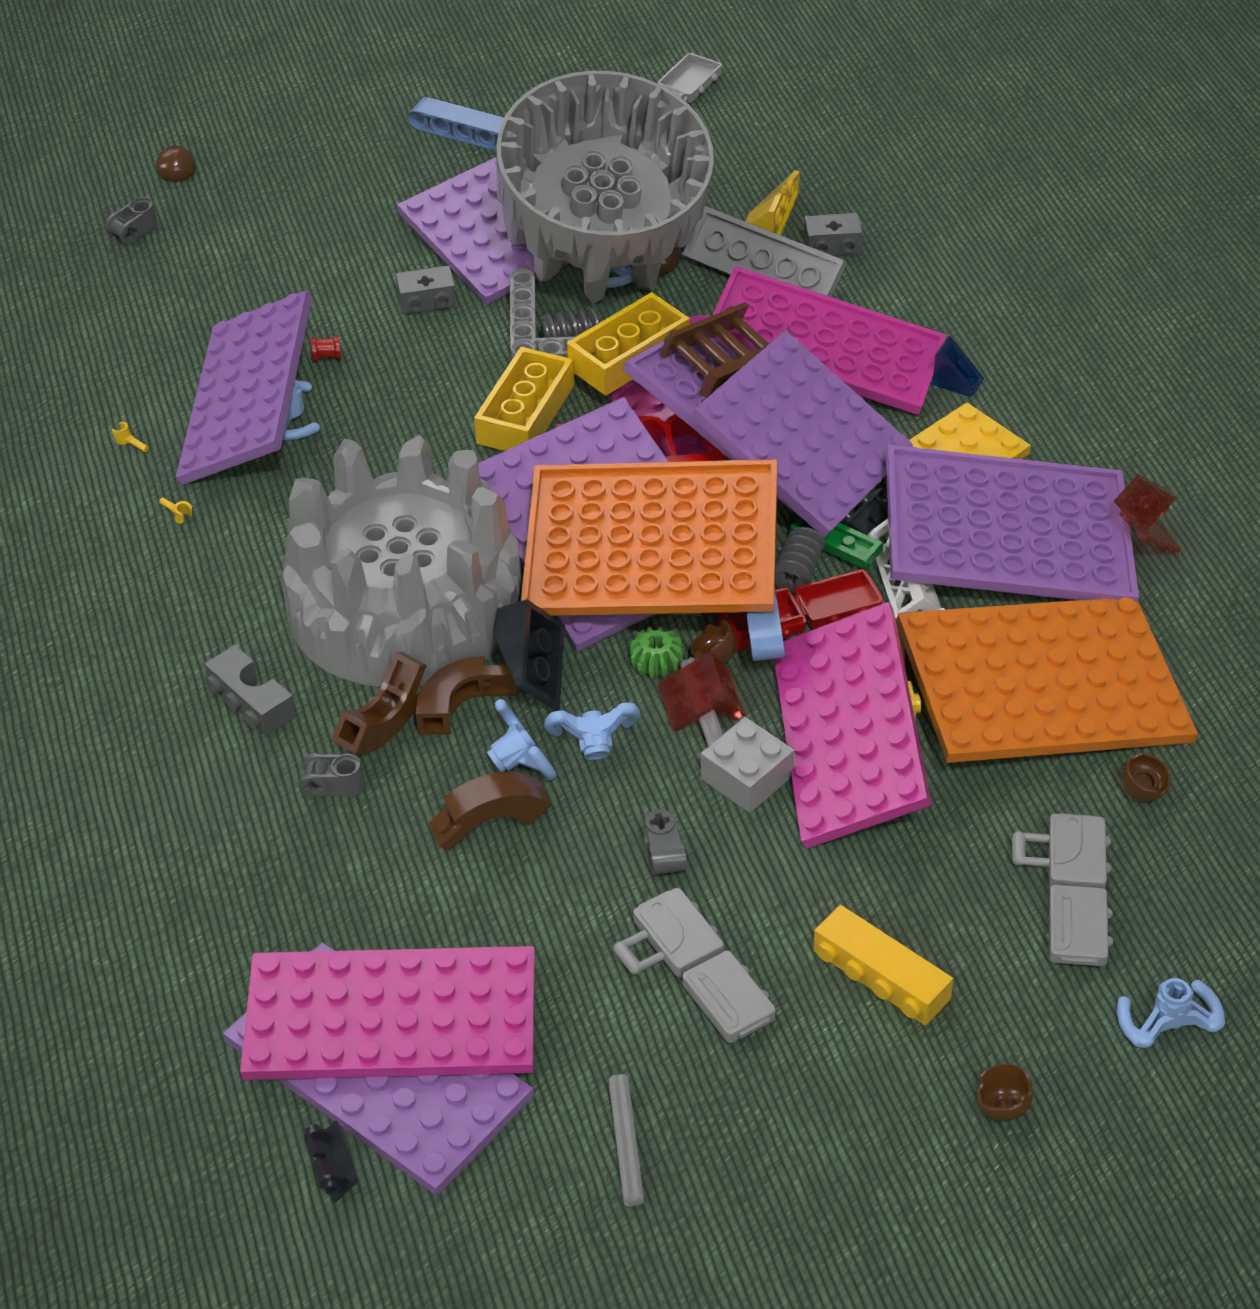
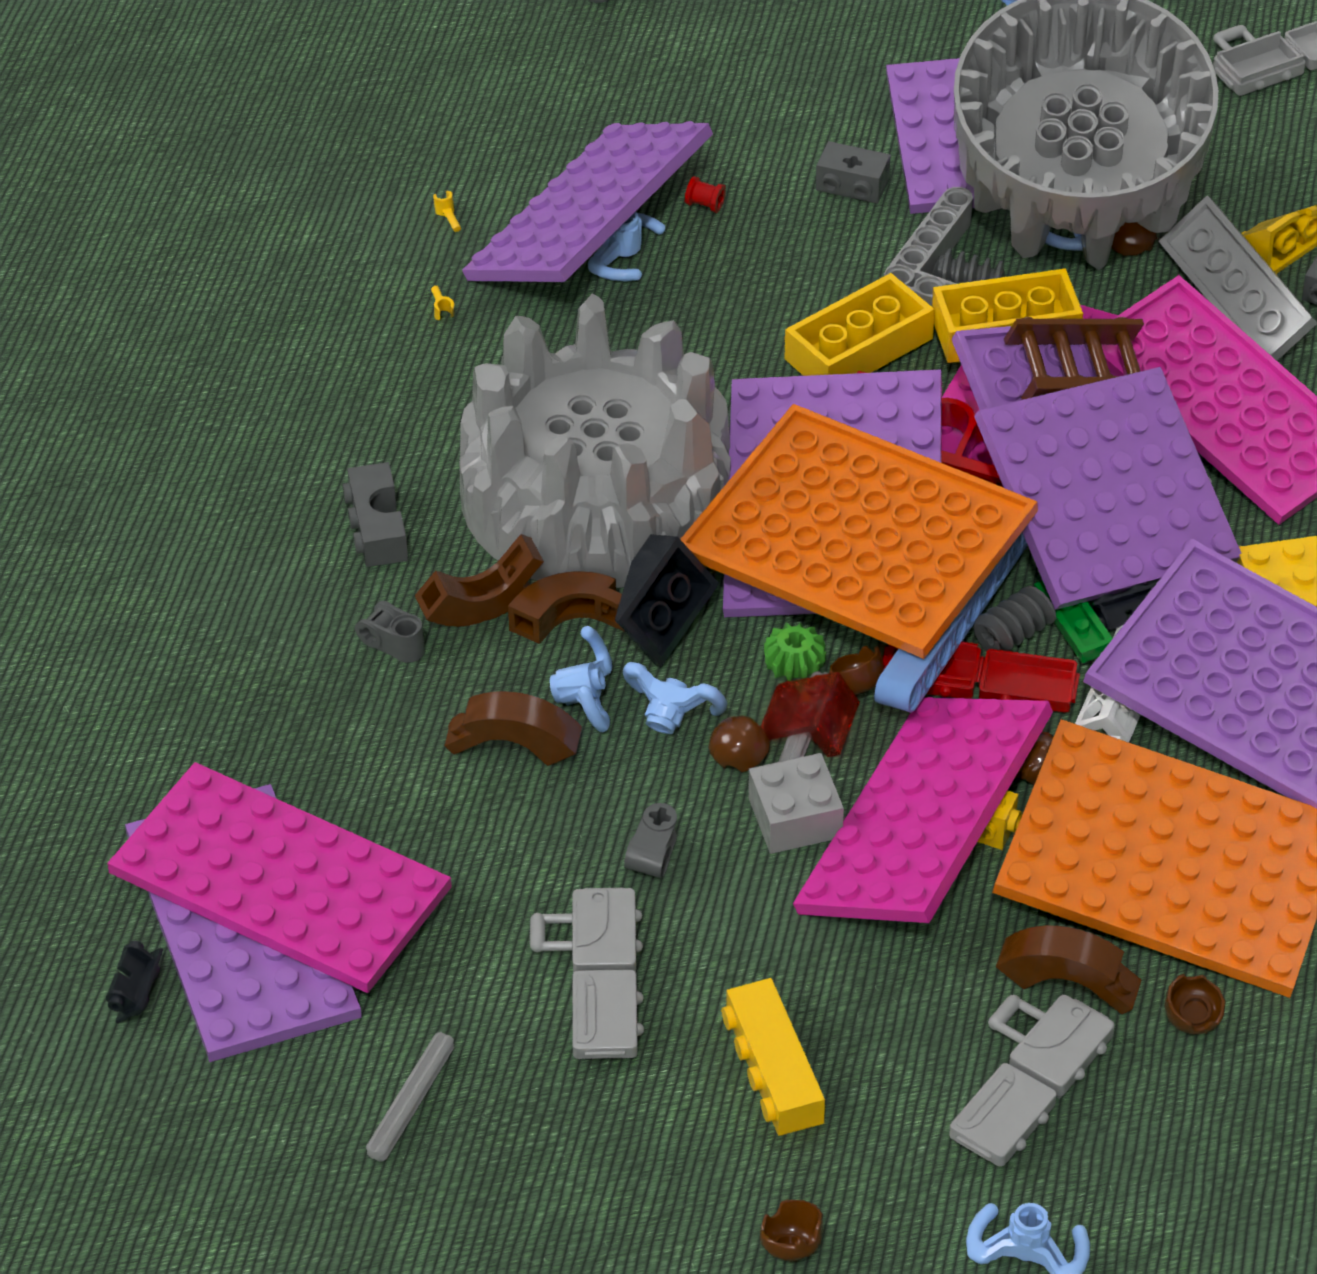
camera: 30 degrees right, 0 degrees up
(667, 739) = (738, 743): none -> reddish brown hair
(1035, 783) = (1070, 955): none -> reddish brown arch

